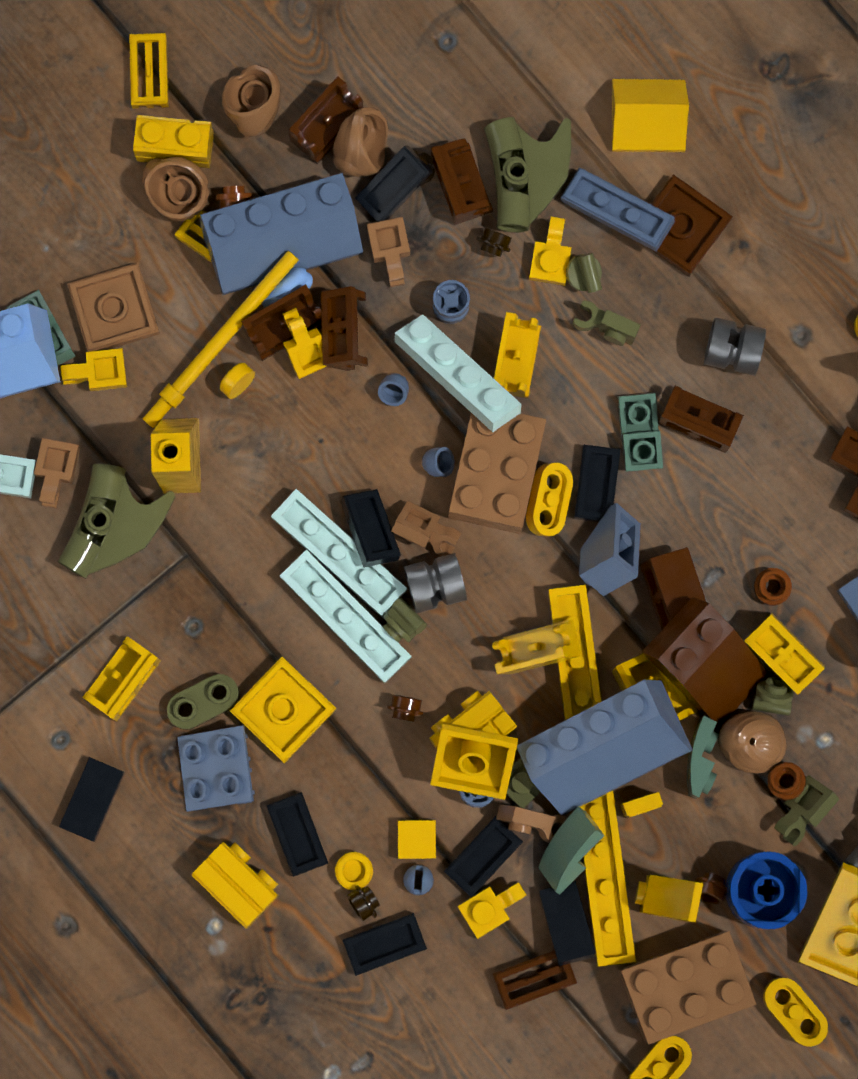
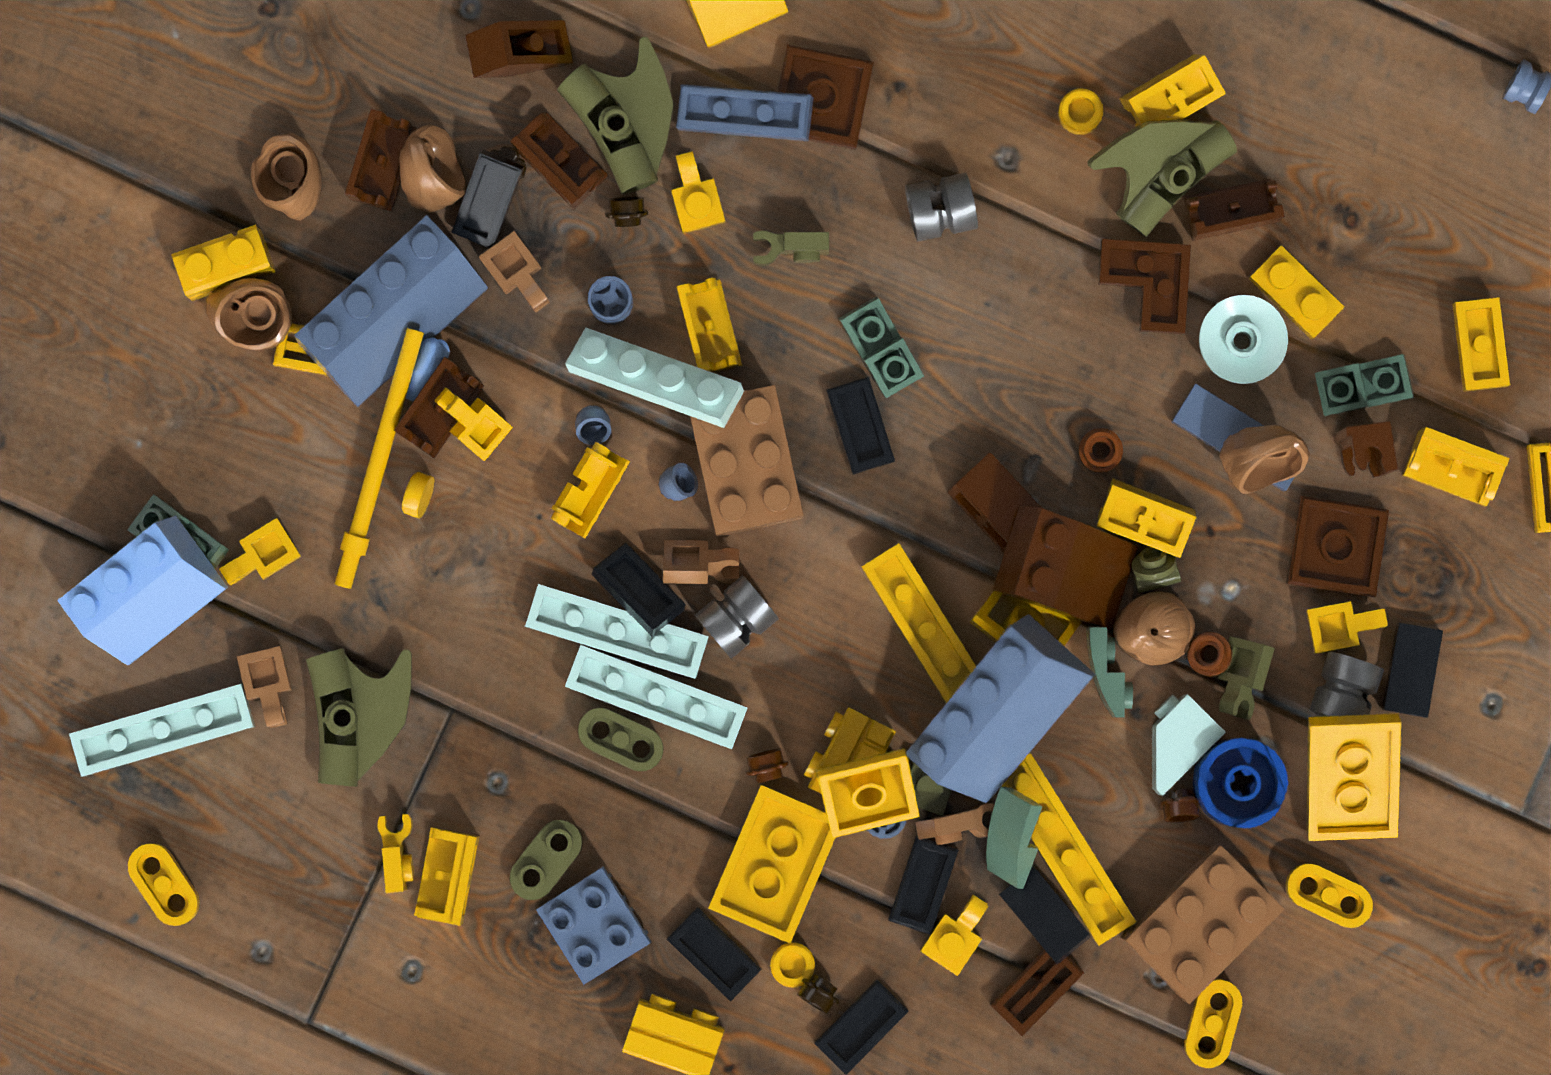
camera: 25 degrees left, 5 degrees up
(87, 651) = (396, 865): none -> yellow plate
(92, 799) = (476, 1019): black tile -> none
(113, 308) = (245, 477): medium nougat tile -> none
(150, 100) = (174, 227): yellow tile -> none
(183, 471) = (386, 589): yellow slope -> none
(233, 195) = (318, 294): dark orange plate -> none
(283, 710) = (636, 828): yellow plate -> none
(303, 636) = (620, 740): none -> olive plate
(341, 328) = (505, 386): reddish brown hinge -> none
(376, 786) = (774, 864): none -> yellow plate
(382, 427) = (581, 505): none -> yellow hinge
(403, 621) = (721, 674): olive plate -> none
(417, 839) = (843, 900): yellow tile -> none
(426, 881) = (875, 939): sand blue hinge -> none
(469, 84) = (518, 48): none -> reddish brown slope
(537, 648) = (878, 635): yellow hinge -> none
(551, 500) = (819, 468): yellow plate -> none
(584, 273) = (741, 200): olive plate -> none
(611, 551) = (910, 494): sand blue slope -> none
(641, 805) = (1067, 752): yellow tile -> none
(669, 898) = (1141, 840): yellow slope -> none
(700, 419) = (940, 302): reddish brown hinge -> none
(734, 836) = (1179, 740): none -> light aqua slope

